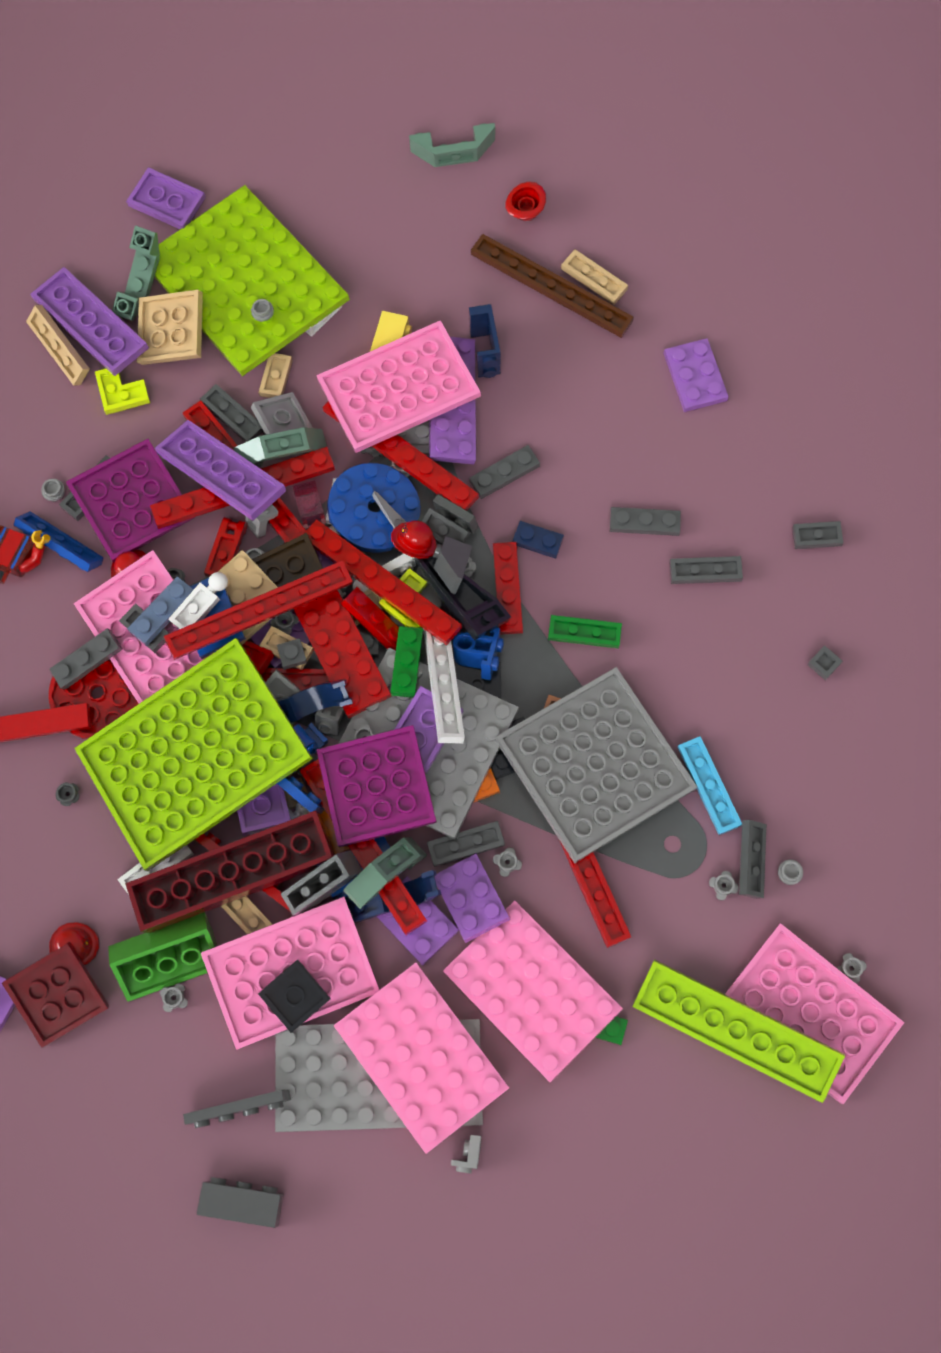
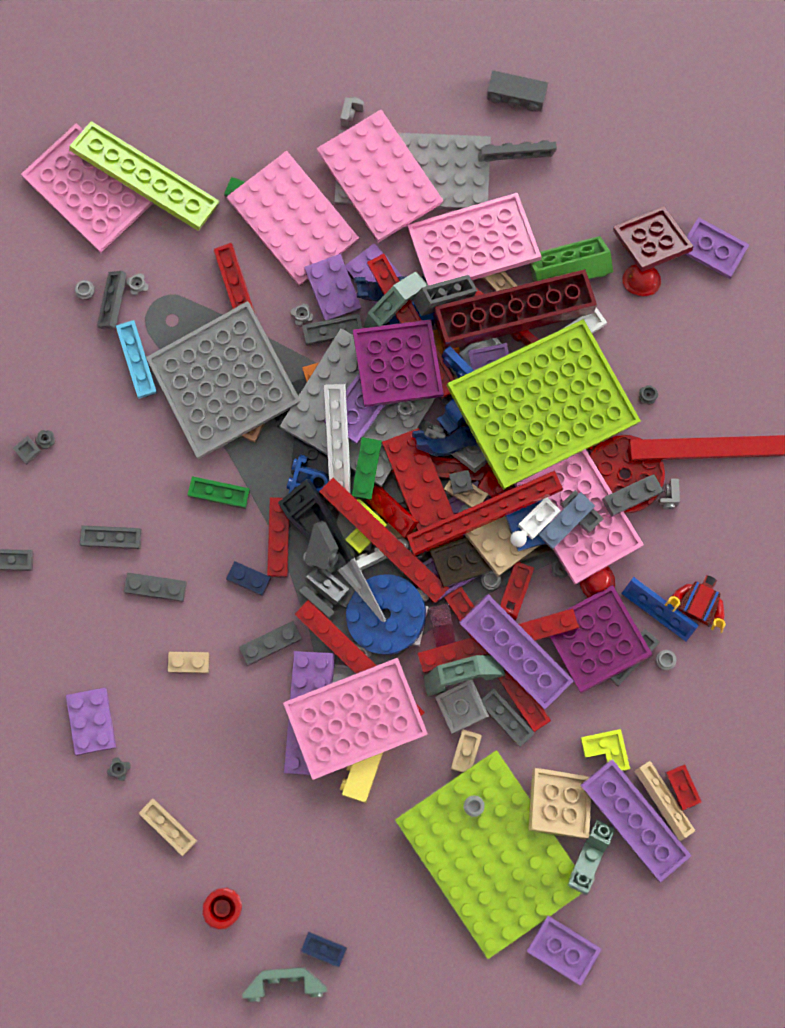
camera: 175 degrees left, 5 degrees up
(37, 361) = (683, 787): none -> red plate
(39, 671) = (673, 493): none -> light grey bracket
(167, 993) = (568, 230): light grey plate -> none
(294, 996) = (471, 221): black plate -> none
(414, 539) = (353, 572): red hat -> none
(416, 179) = (323, 949): none -> dark blue plate
(483, 324) = (272, 783): dark blue panel -> none
(552, 285) = (208, 822): reddish brown plate -> none
(595, 444) = (188, 662): none -> tan plate
(657, 323) = (112, 771): none -> dark grey plate
(802, 684) = (50, 439): none -> dark grey plate
(859, 967) = (51, 211): light grey plate -> none

